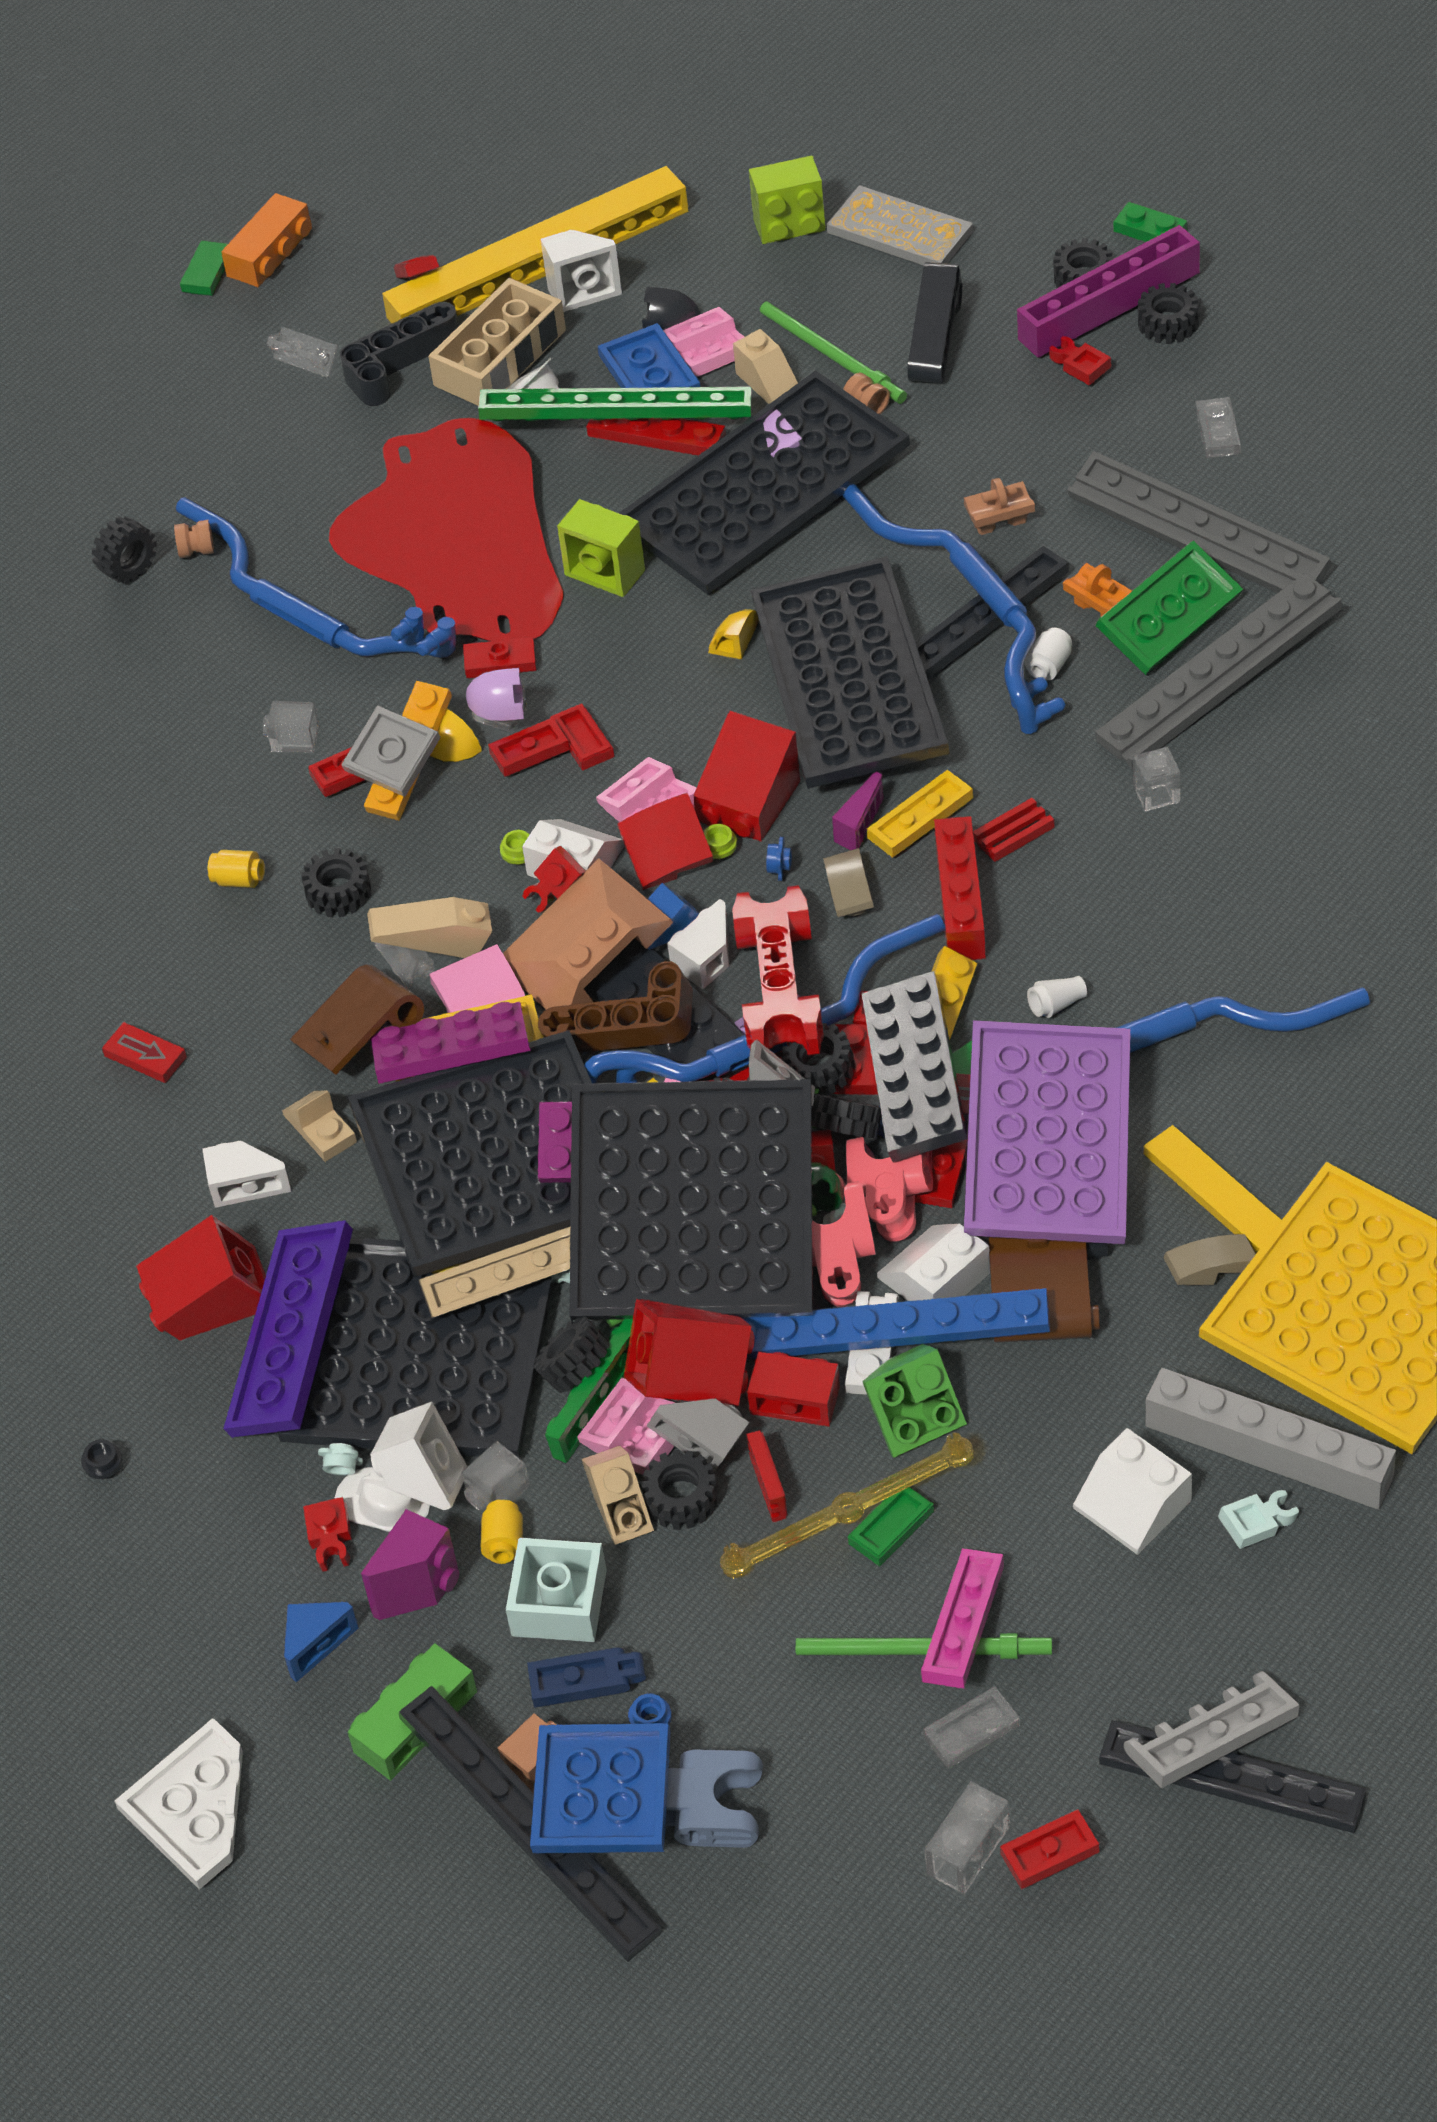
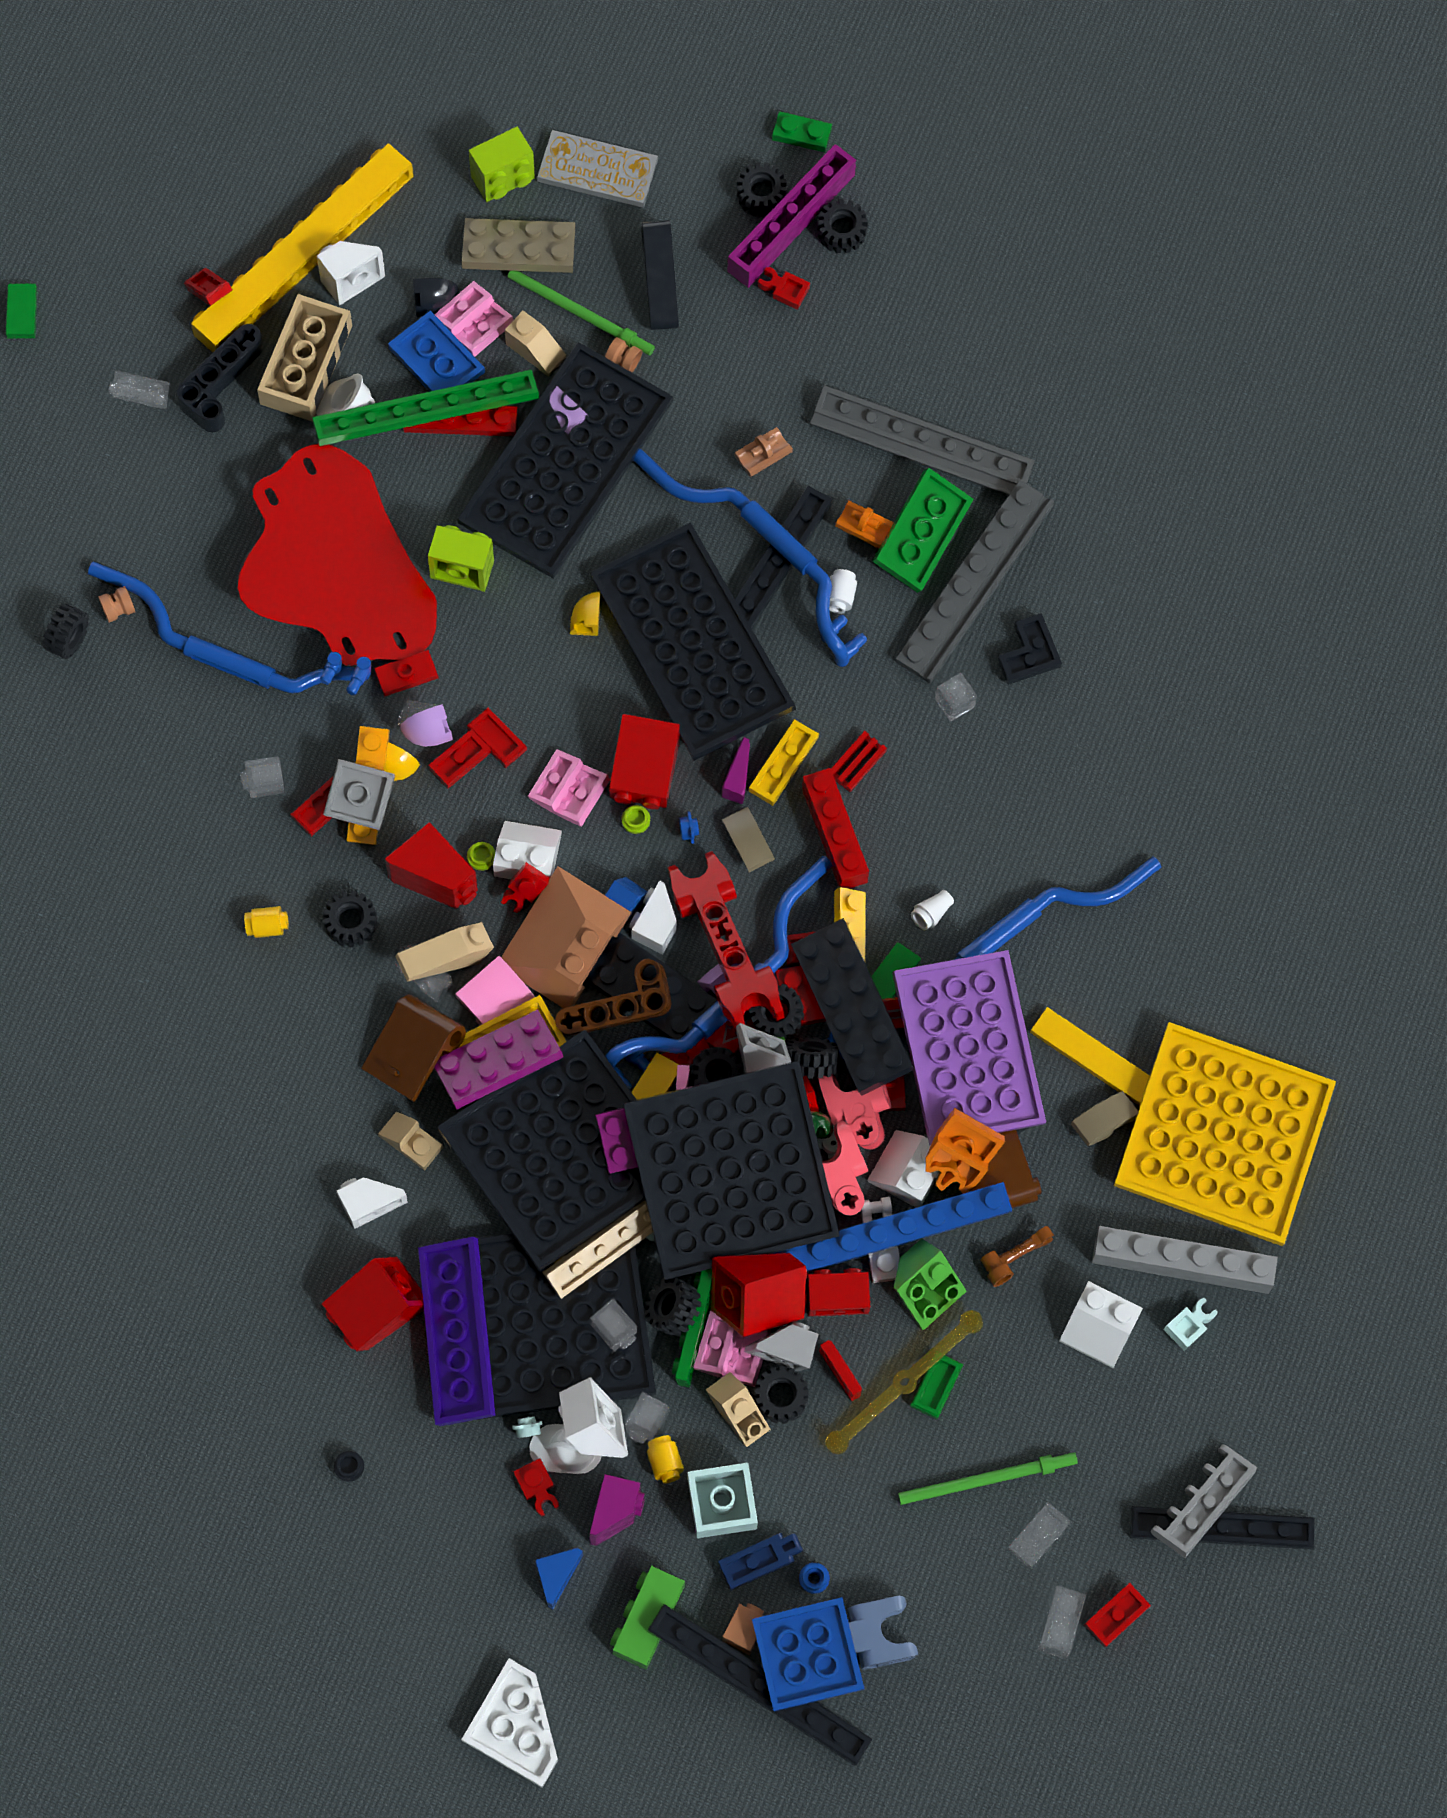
camera: 25 degrees left, 20 degrees up
(144, 1052) = (251, 1105): red tile -> none
(266, 240) = (67, 275): orange brick -> none
(448, 840) = (432, 869): none -> red slope
(487, 1357) = (614, 1326): none -> clear brick
(665, 841) = (597, 831): red slope -> none
(782, 281) = (518, 245): none -> dark tan plate
(962, 1618) = (1012, 1455): dark pink plate -> none
(1000, 1239) = (962, 1151): none -> orange plate
(1015, 1401) = (998, 1266): none -> dark orange brick
(1218, 427) = (910, 335): clear plate -> none
(1272, 757) = (1037, 654): none -> black plate

